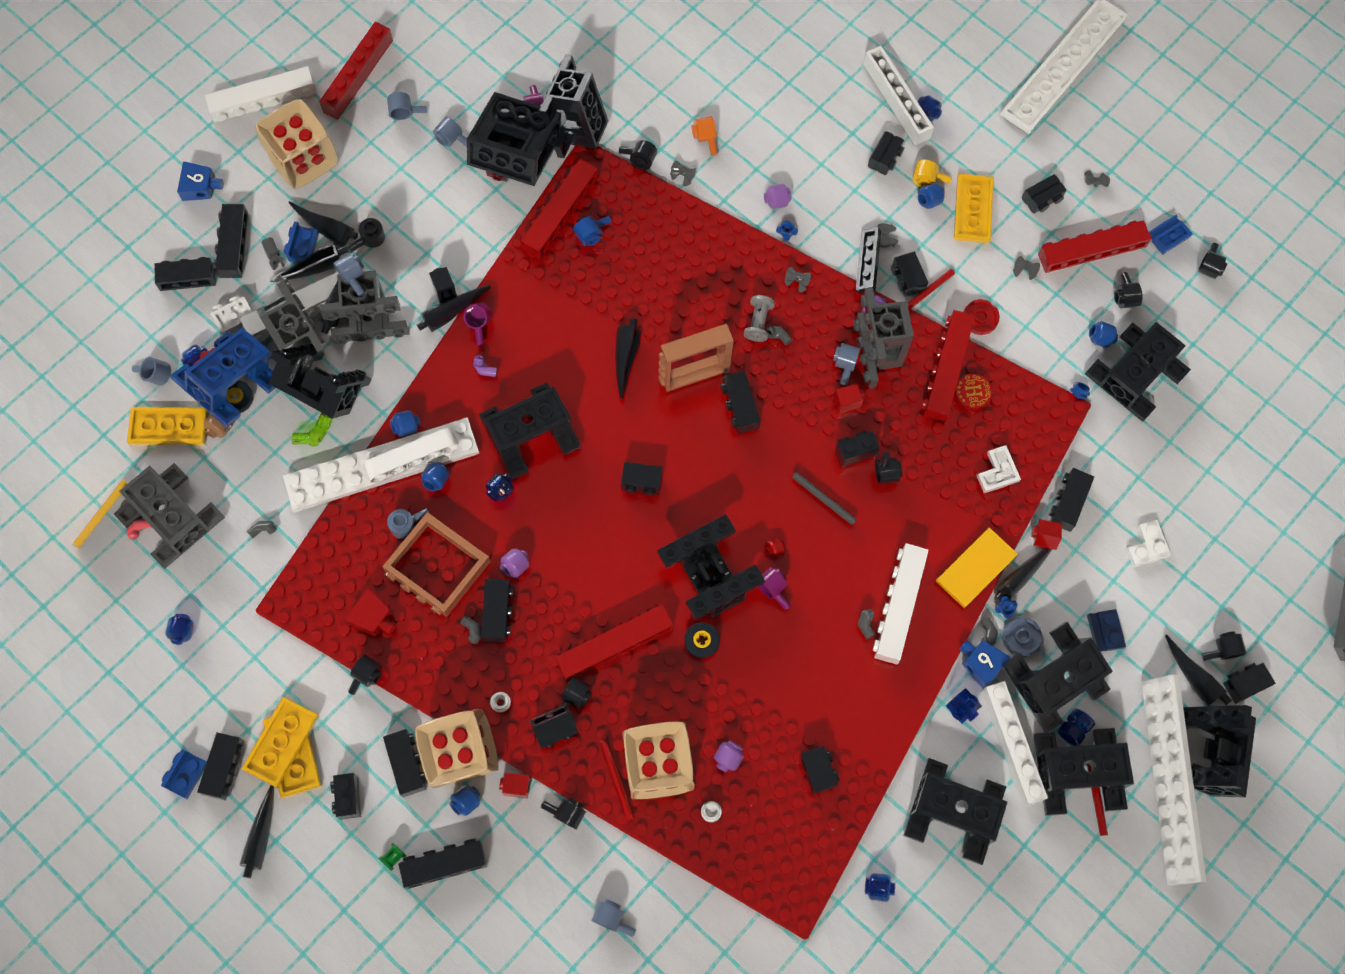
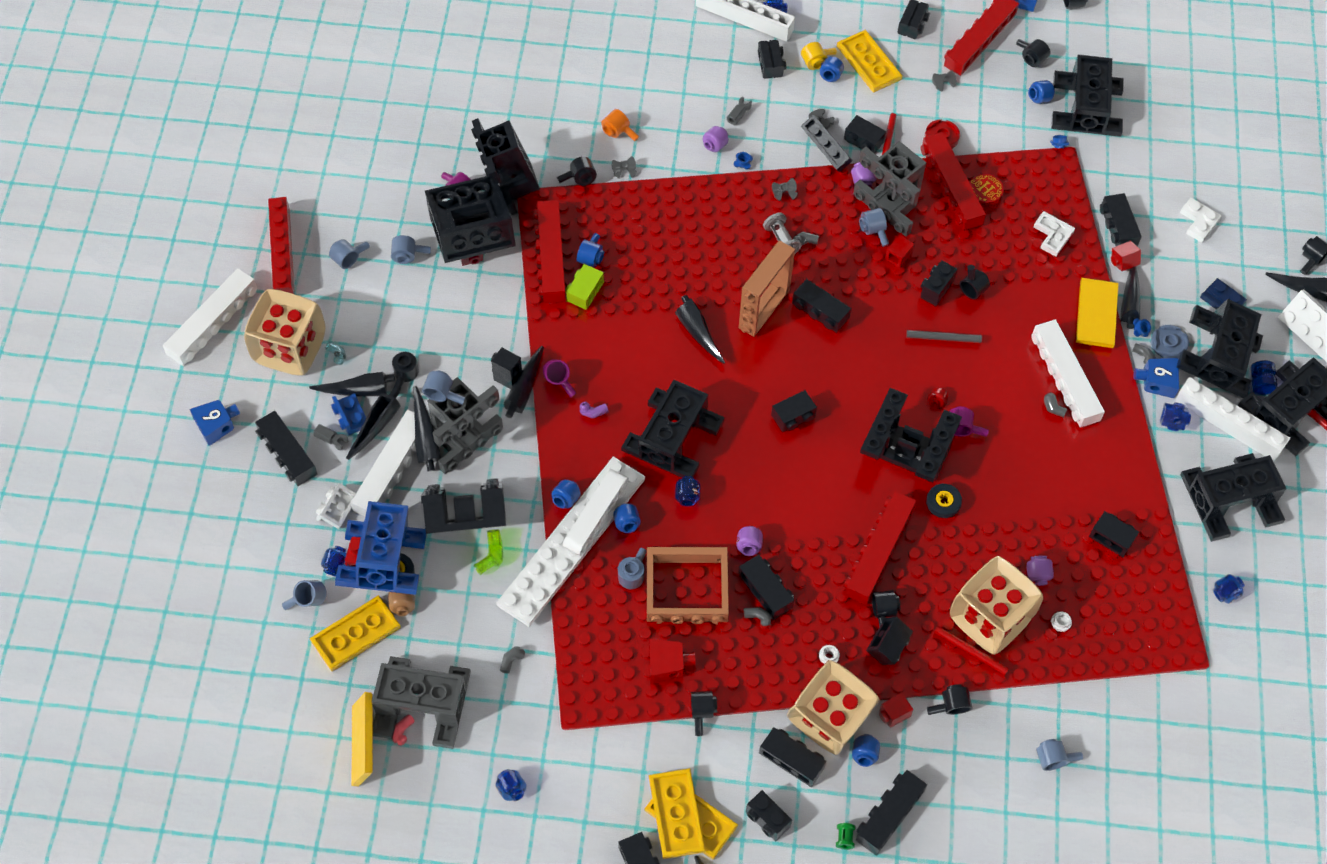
camera: 35 degrees left, 10 degrees down
(184, 274) = (266, 500): black brick -> none
(297, 327) = (398, 473): dark grey piece -> none
(333, 187) = (338, 351): none -> clear light blue arm
(562, 257) = (585, 286): none -> lime brick
(820, 183) = (738, 111): none -> dark grey bar

